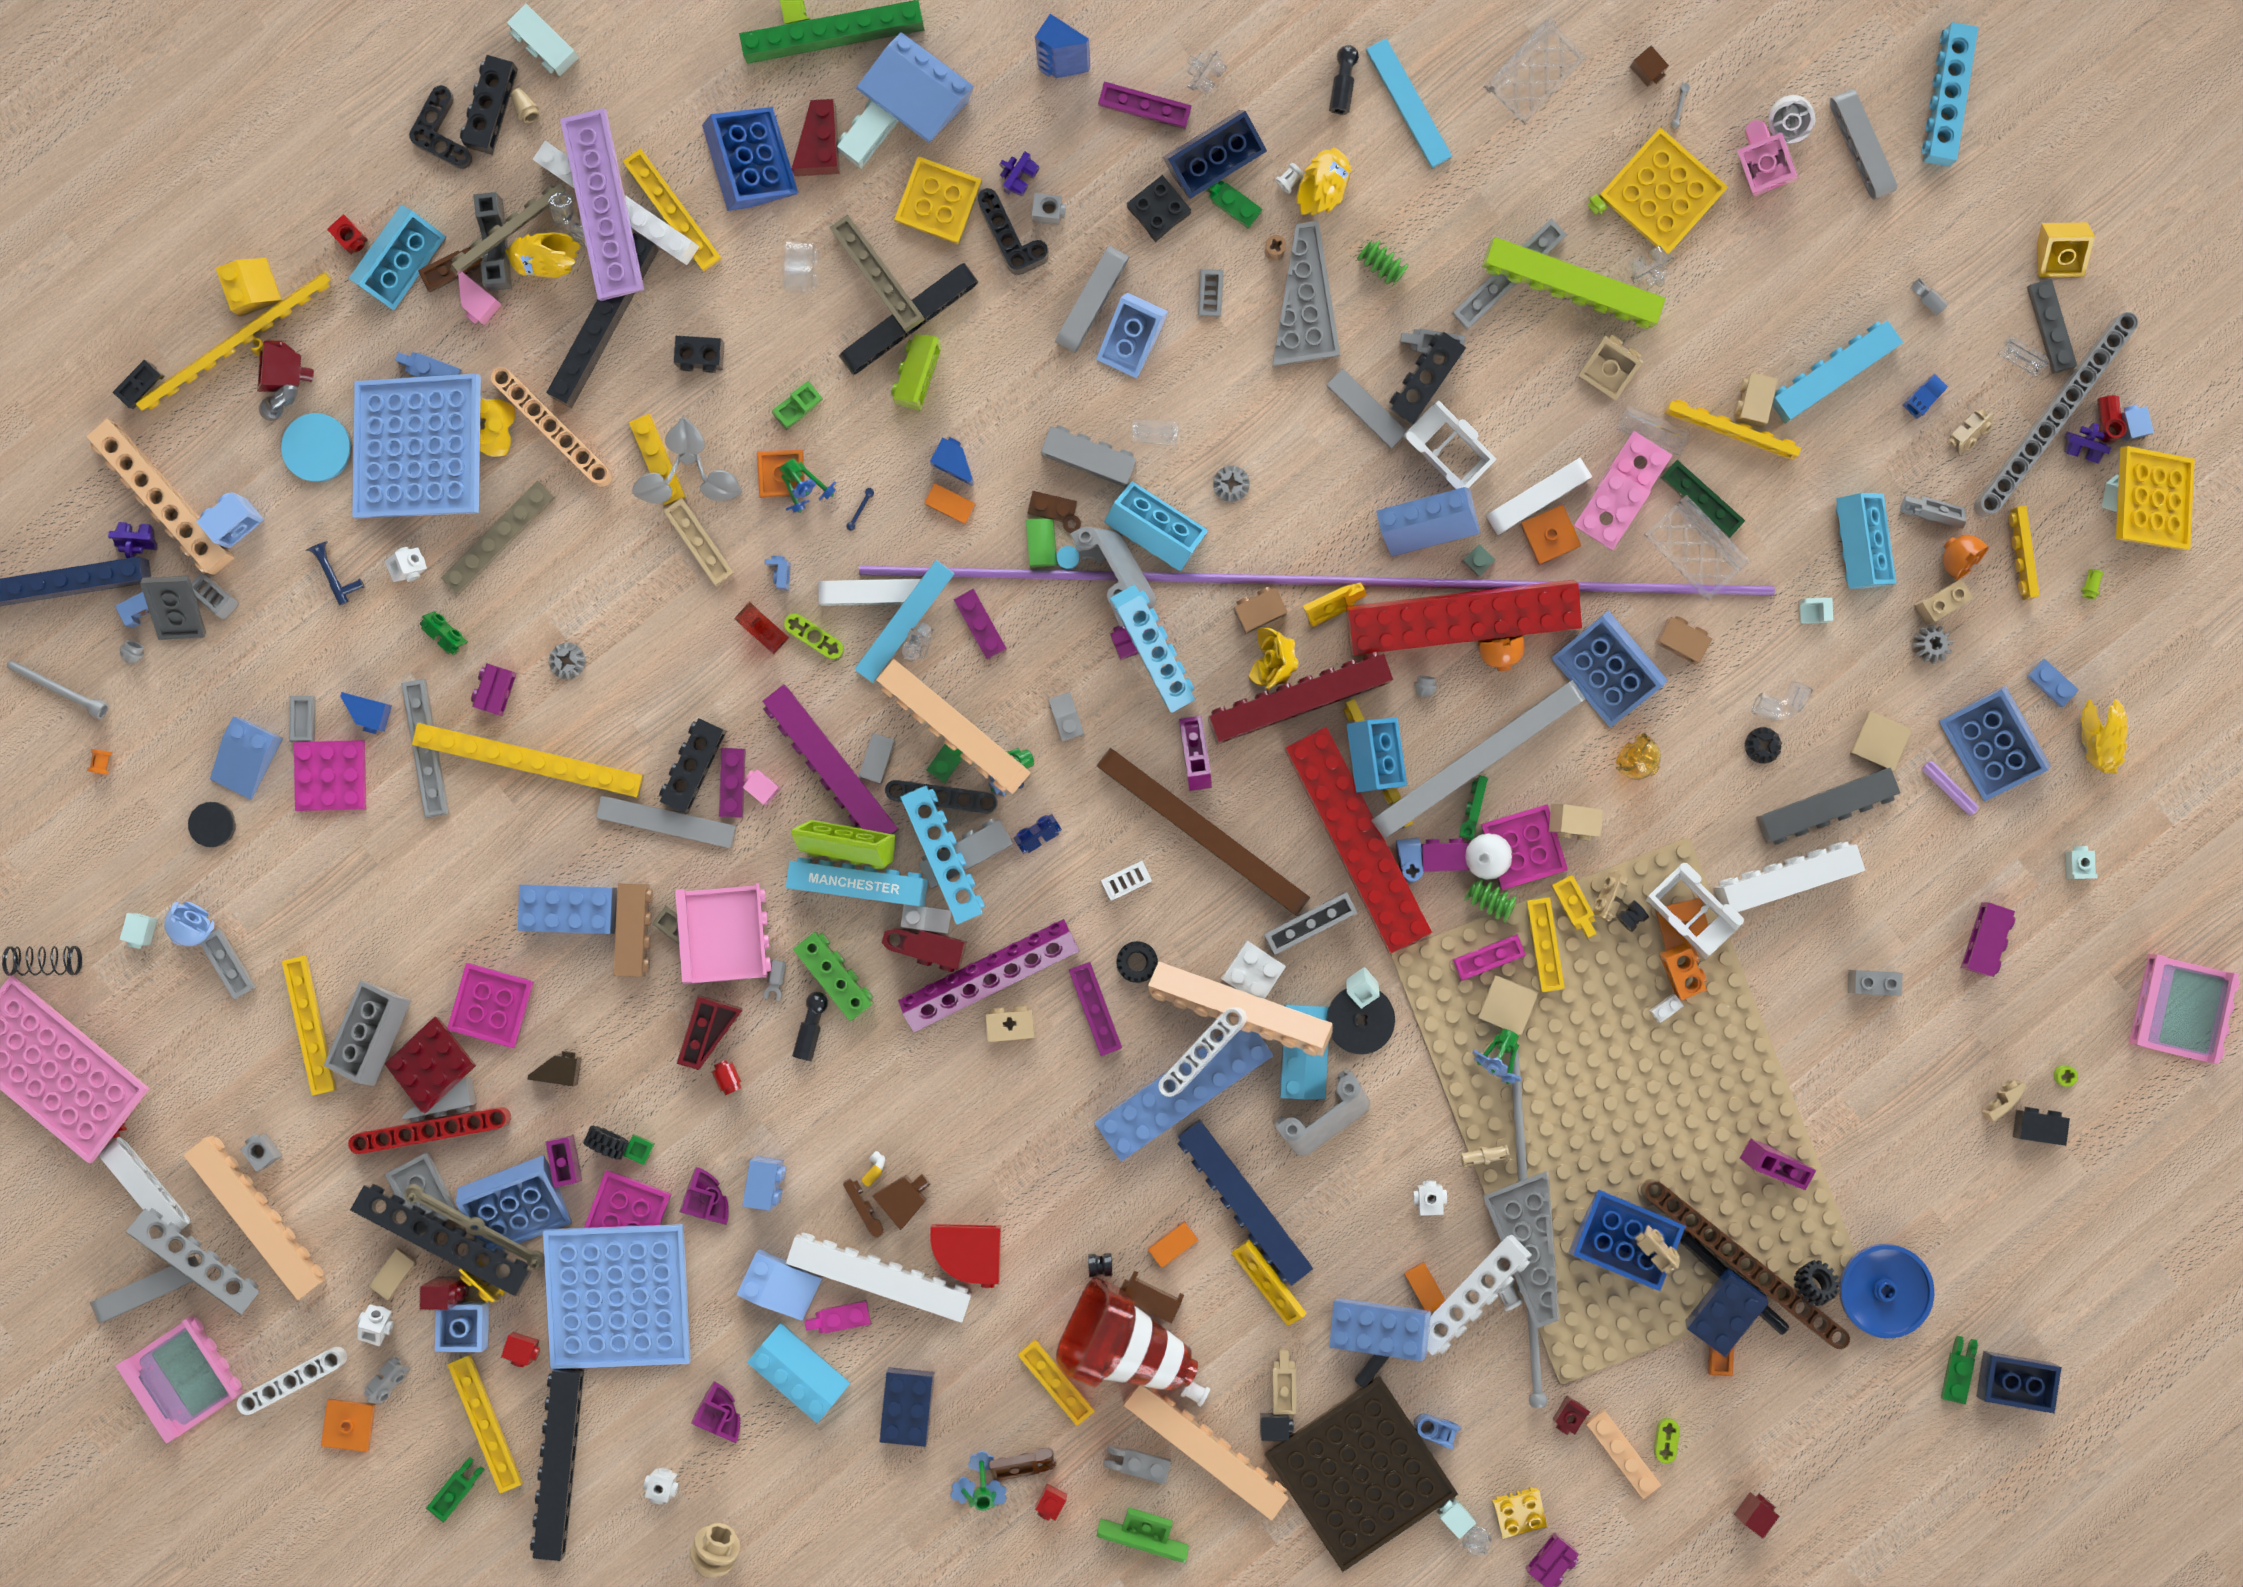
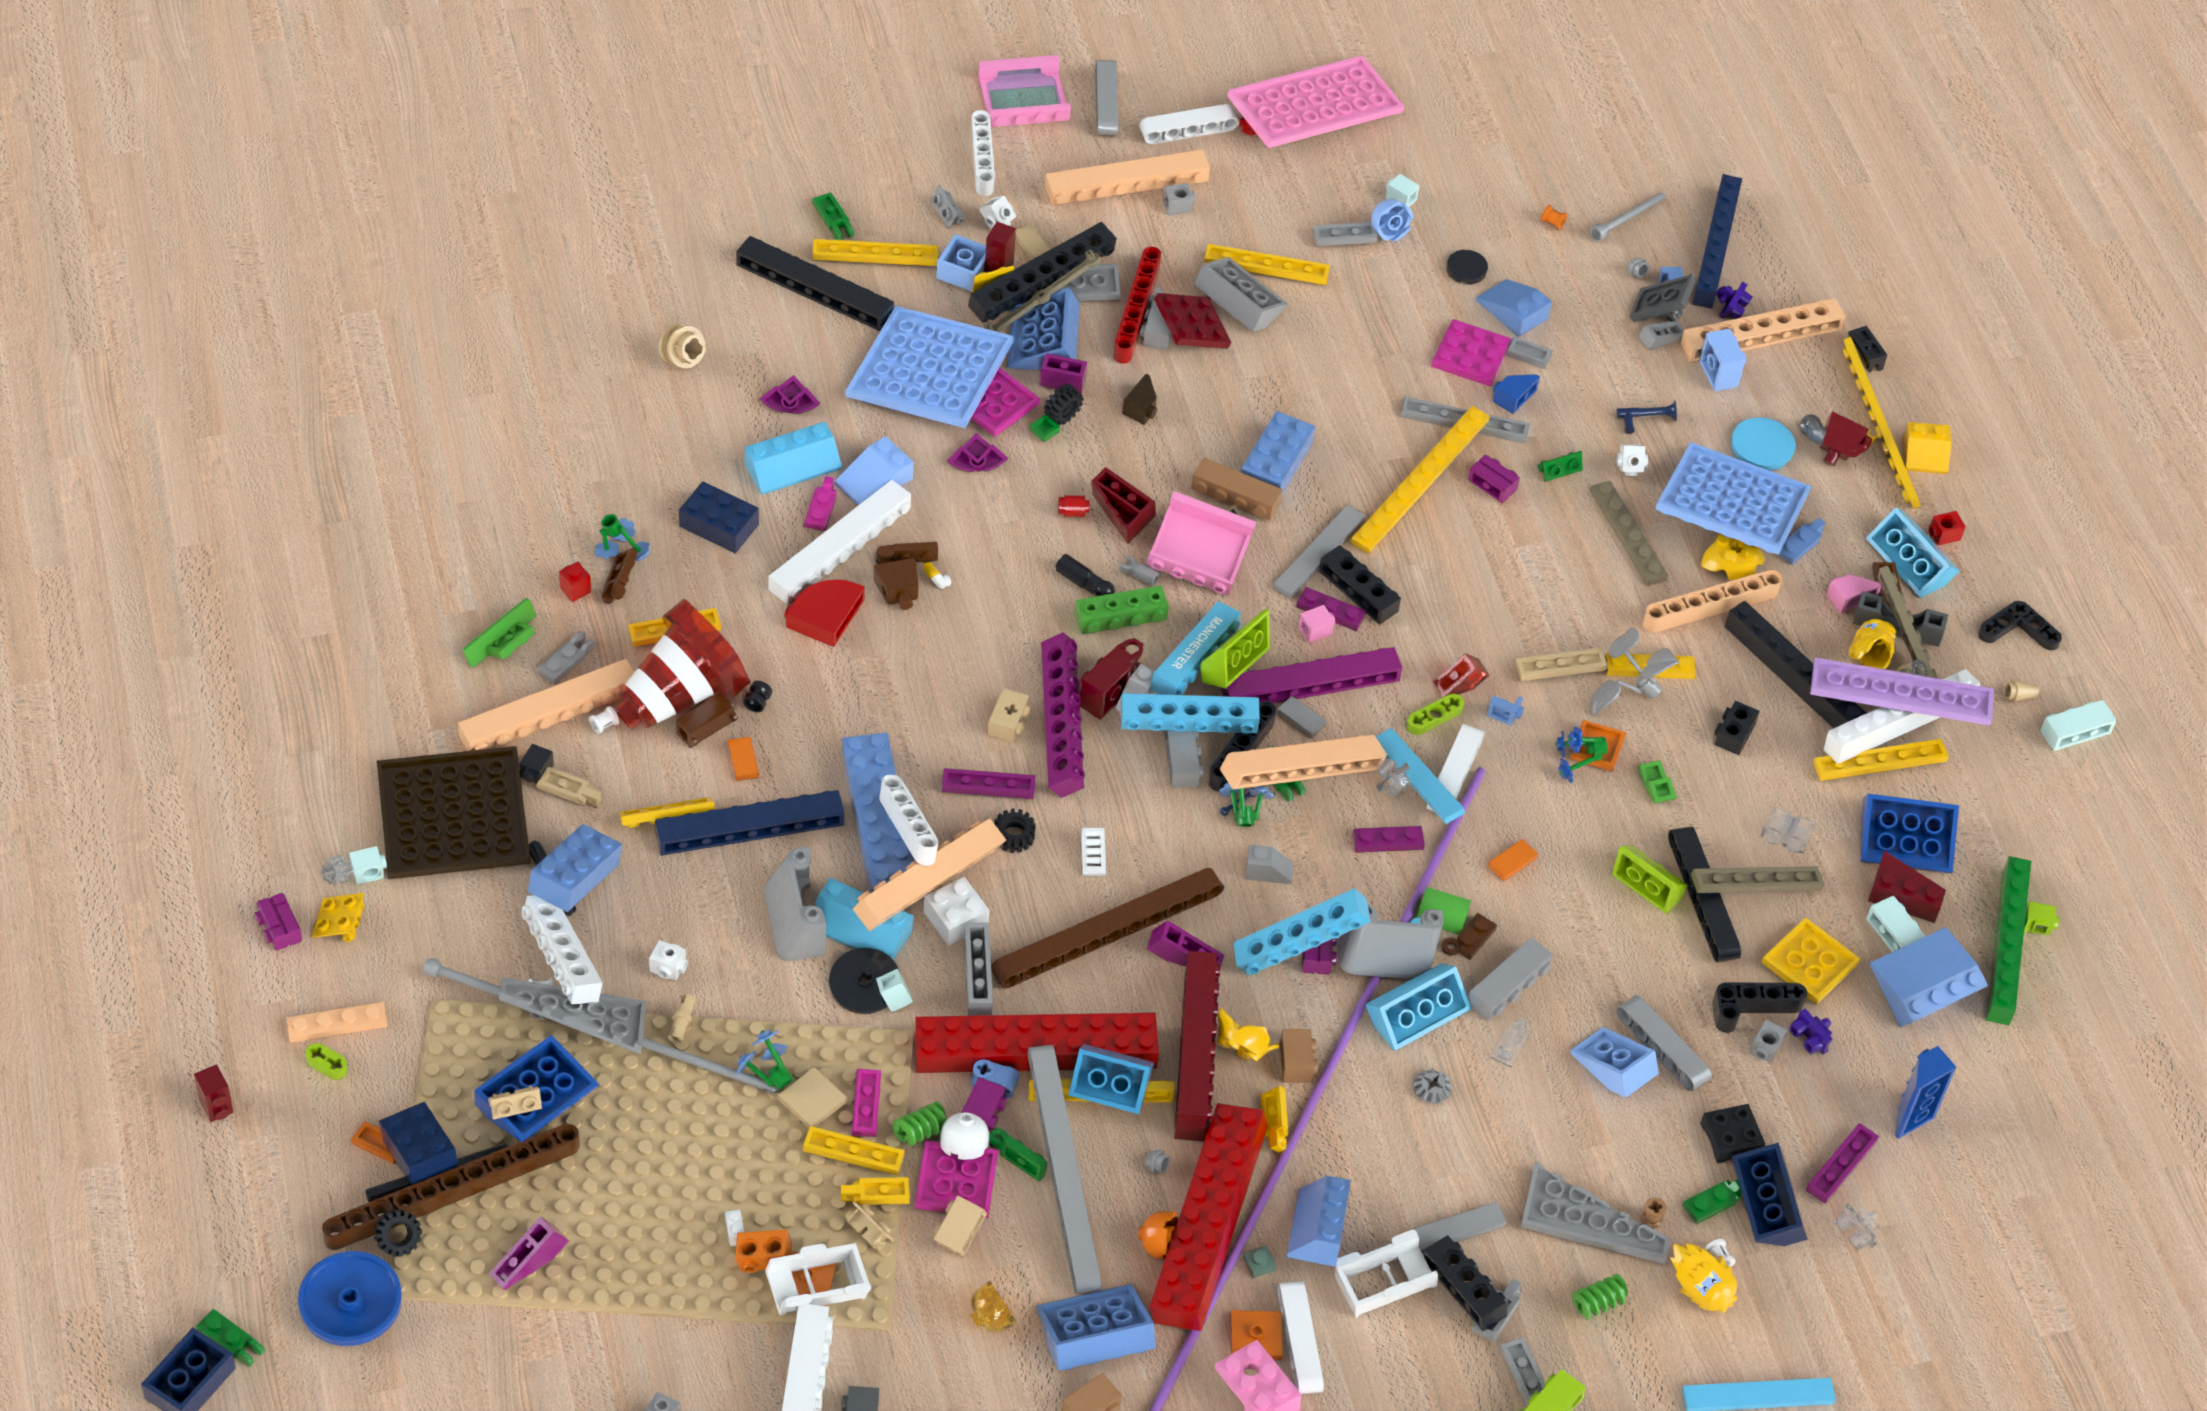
camera: 105 degrees right, 35 degrees down
(16, 963) = (1409, 115): black piece -> none
(140, 1232) = (1137, 105): light grey brick -> none
(348, 1425) = (925, 174): orange plate -> none
(486, 138) = (2030, 665): black brick -> none
(490, 1005) = (1221, 379): dark pink plate -> none
(520, 1349) = (923, 294): red brick -> none
(576, 655) = (1496, 545): light grey gear -> none
(664, 1478) = (755, 337): white brick -> none
(763, 1183) = (969, 490): medium blue brick -> none
(869, 492) = (1550, 805): dark blue hinge -> none
(952, 460) = (1552, 874): blue slope -> none
(1045, 826) = (1170, 796): clear blue hinge -> none
(1202, 283) = (1638, 1155): light grey slope -> none
(1343, 82) = (1803, 1343): black piece -> none
(1425, 1287) = (592, 929): orange tile -> none
(1441, 1430) = (451, 884): medium blue piece -> none
(1567, 1408) = (400, 992): dark red brick -> none
(1632, 916) = (840, 1232): black wheel -> none

